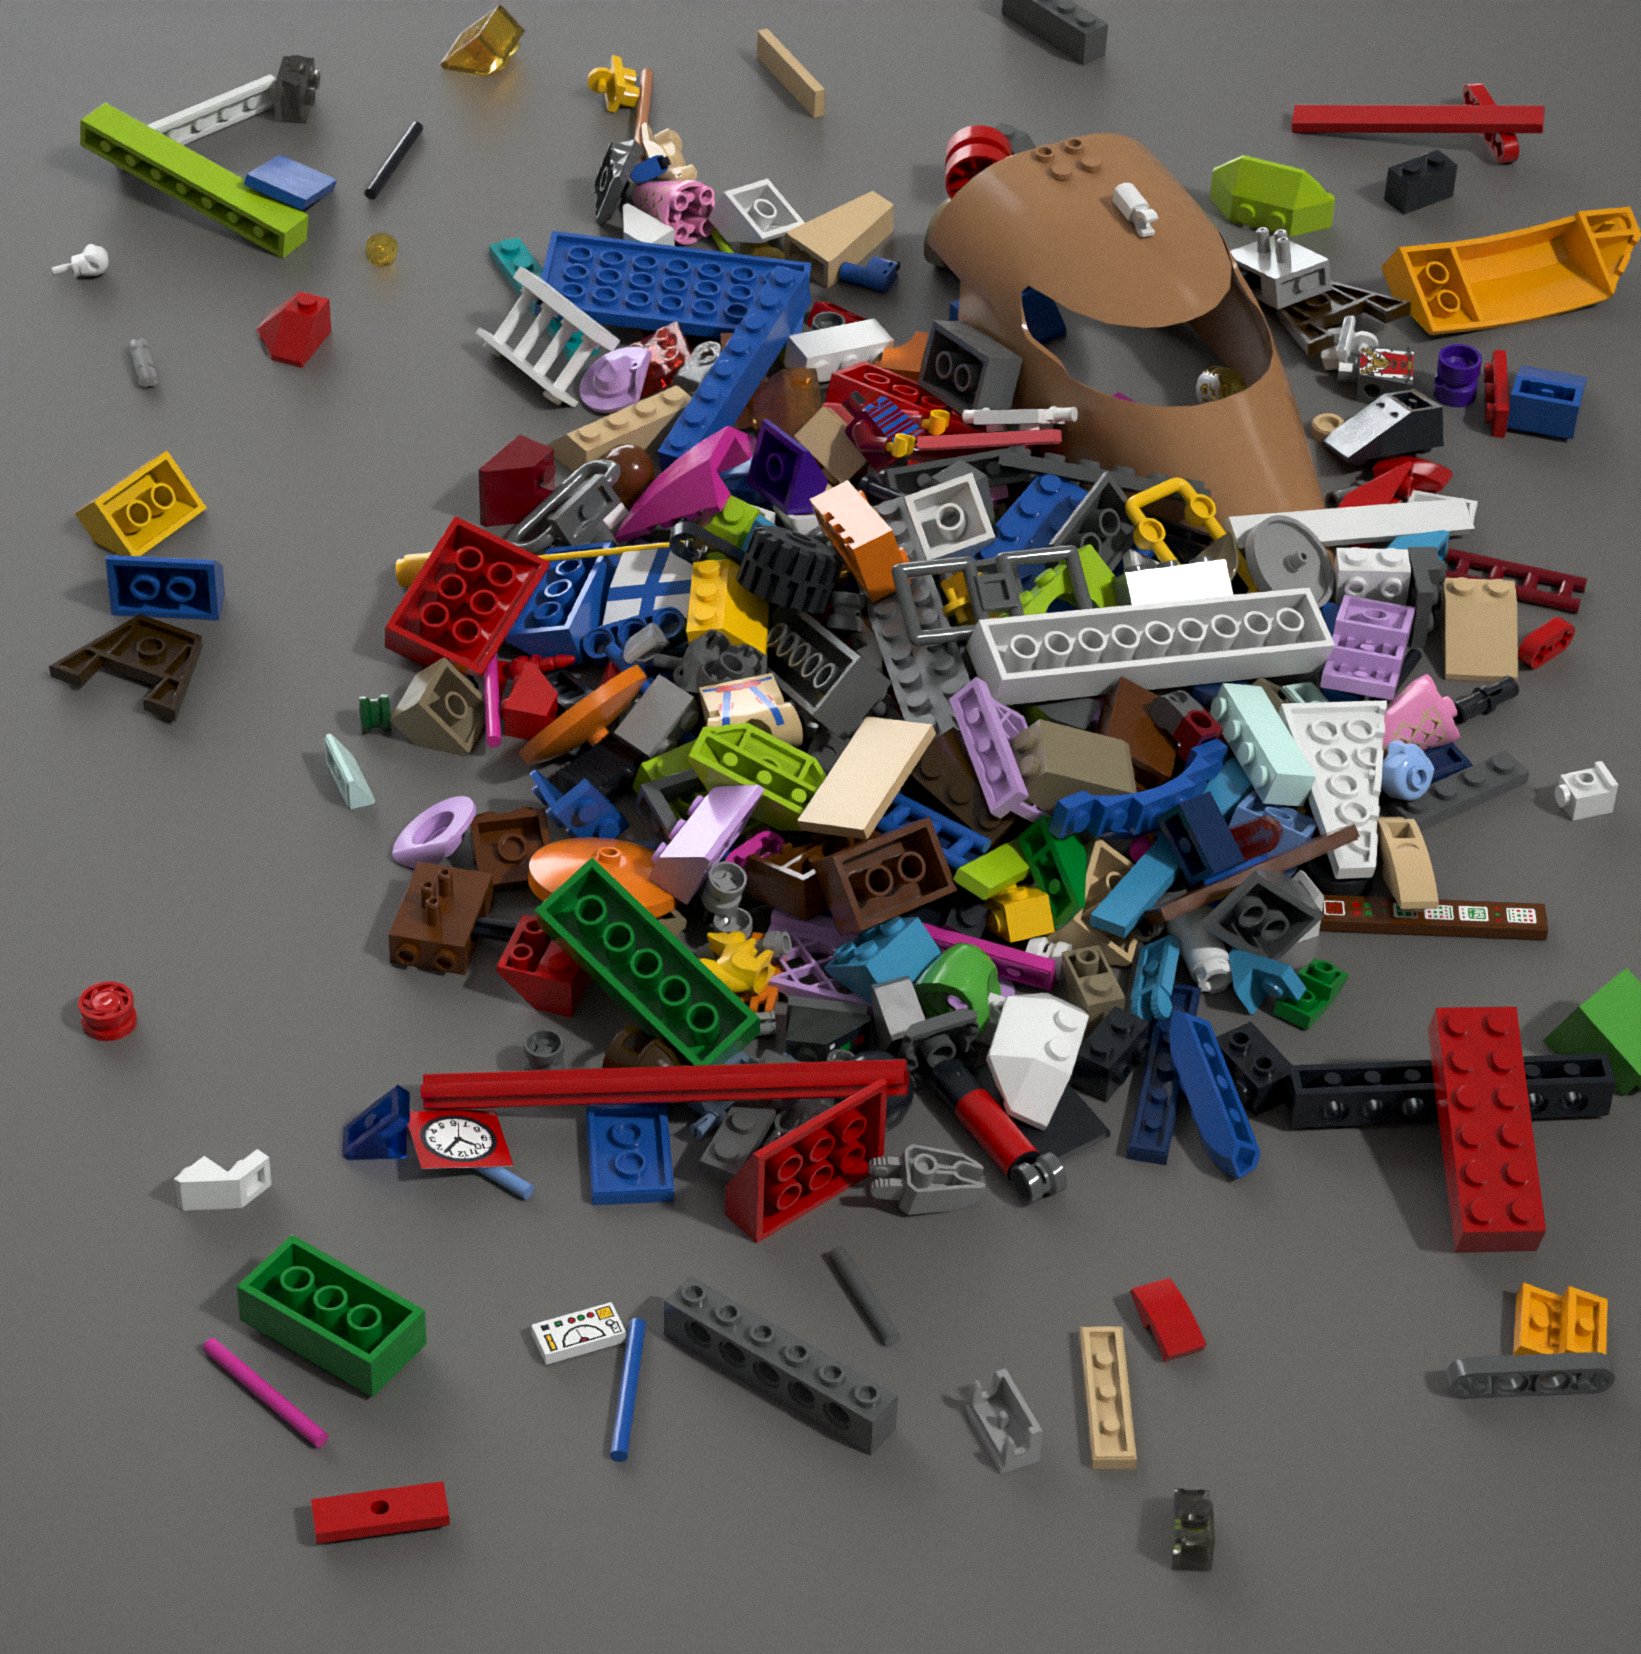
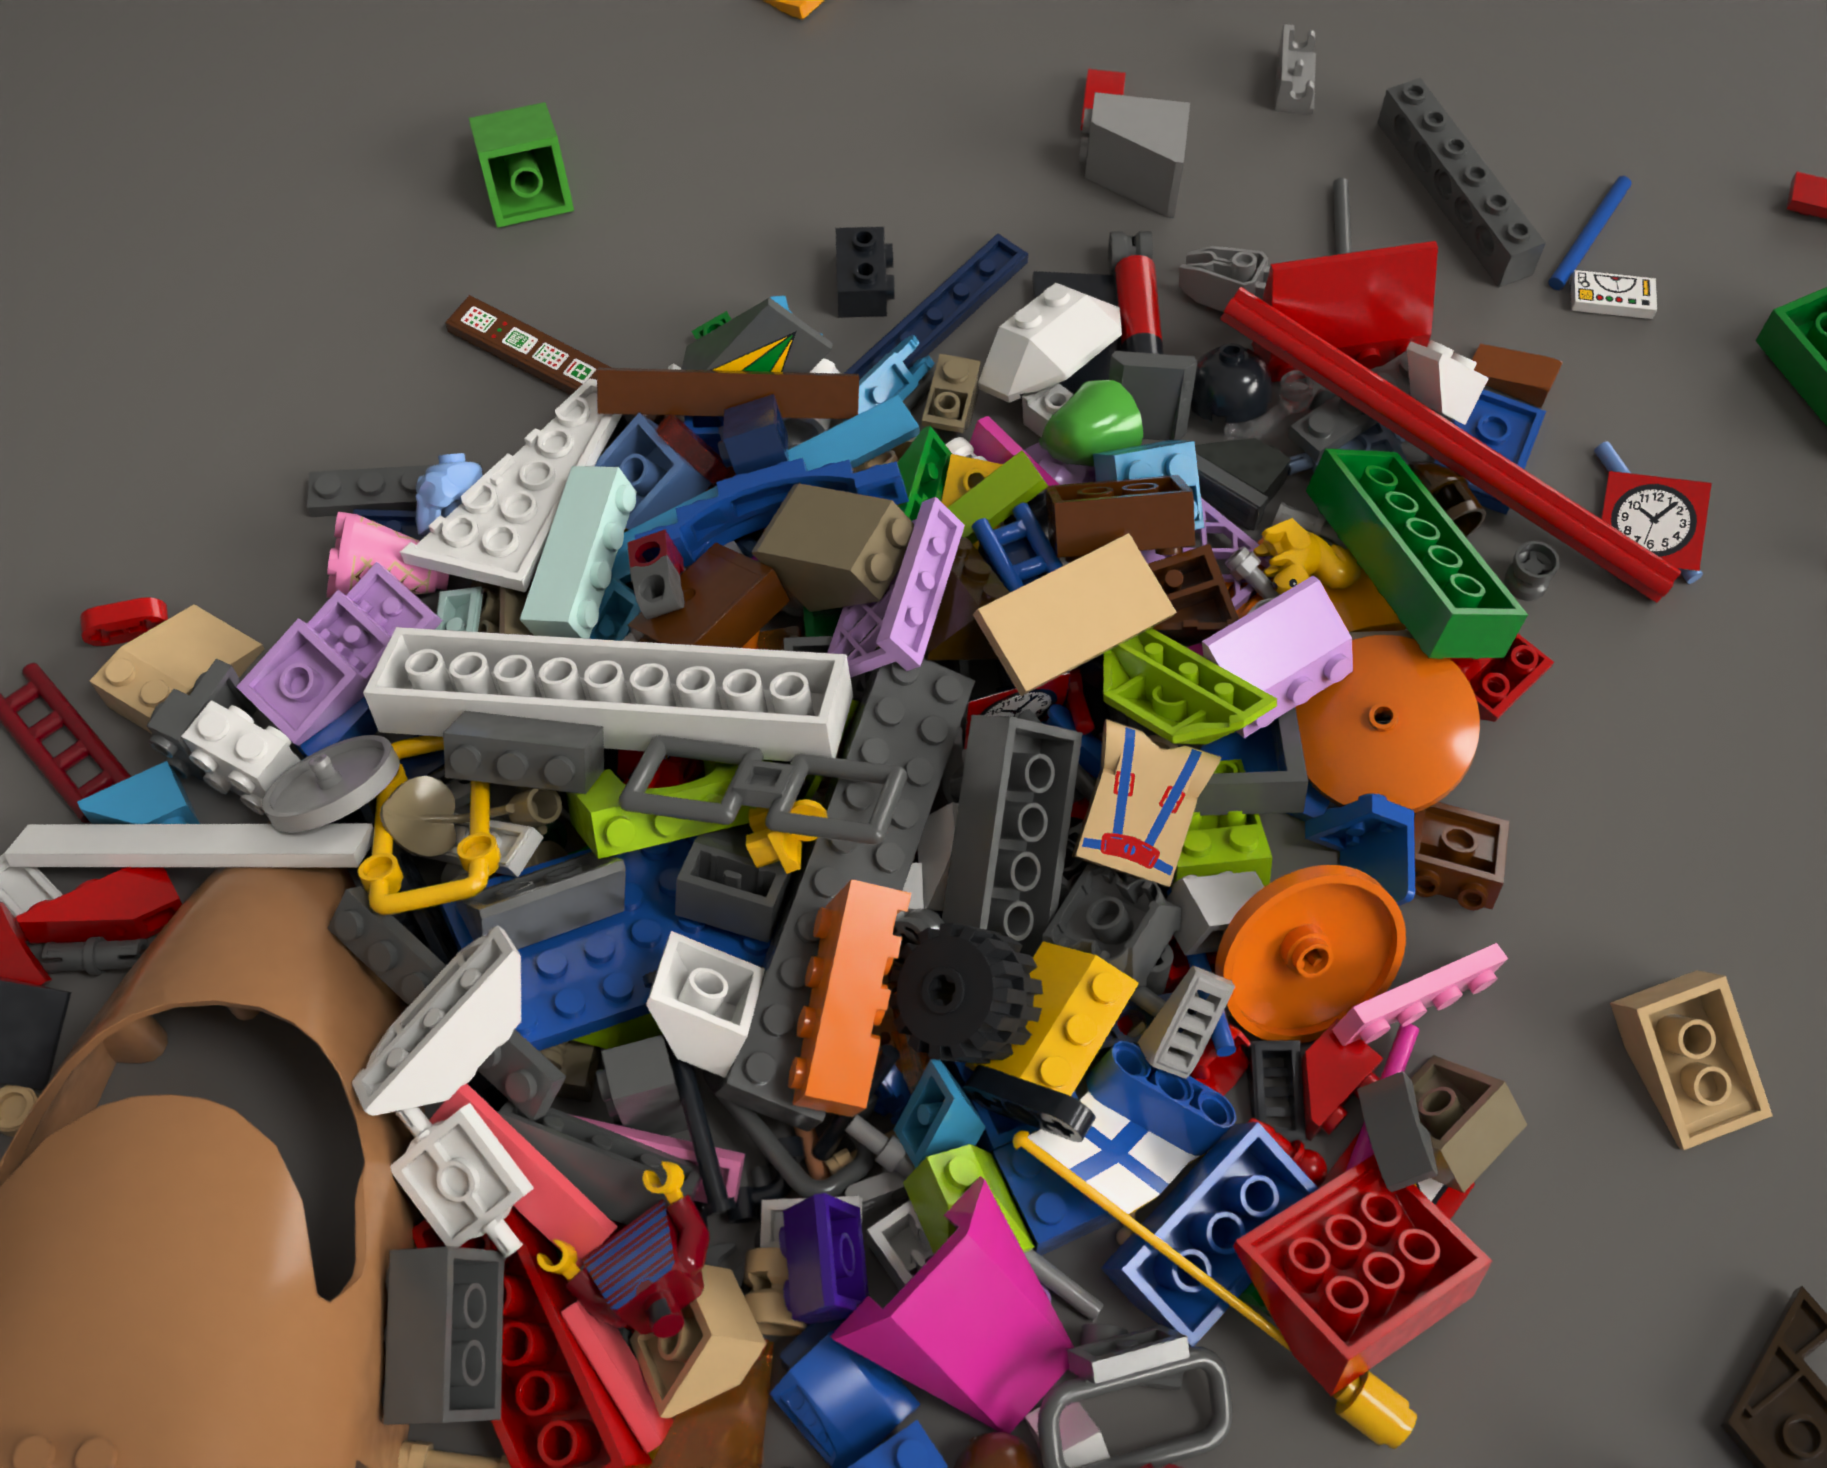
camera: 150 degrees left, 20 degrees up
(294, 802) = (1693, 1056): none -> tan slope
(347, 774) = (1600, 1076): light aqua slope -> none
(374, 713) = (1536, 1160): dark green wheel -> none
(379, 1129) = (1734, 557): clear blue slope -> none
(434, 832) = (1534, 914): lavender hat -> none
(445, 918) = (1566, 790): reddish brown piece -> none
(471, 659) = (1395, 1132): none -> dark grey slope
(498, 742) = (1410, 1000): none -> bright pink plate
(636, 1221) = (1517, 372): none -> dark orange slope
(694, 1130) = (1444, 381): none -> white slope
(894, 1011) = (1172, 418): flat silver slope -> none
(1082, 432) = (446, 1029): none -> white wedge
(1091, 1246) = (1136, 148): none -> light grey slope
(1107, 1398) = (1199, 60): tan tile -> none
(1111, 1054) = (973, 329): black brick -> none
(1135, 208) = (72, 1285): white bar -> none
(1212, 1095) = (922, 254): blue brick -> none
(1406, 864) = (542, 388): tan slope -> none
(1406, 1090) = (714, 165): black brick -> none
(1486, 1129) = (731, 87): red brick -> none
(1499, 692) = (260, 585): black pin -> none
(1587, 792) = (281, 420): white brick -> none

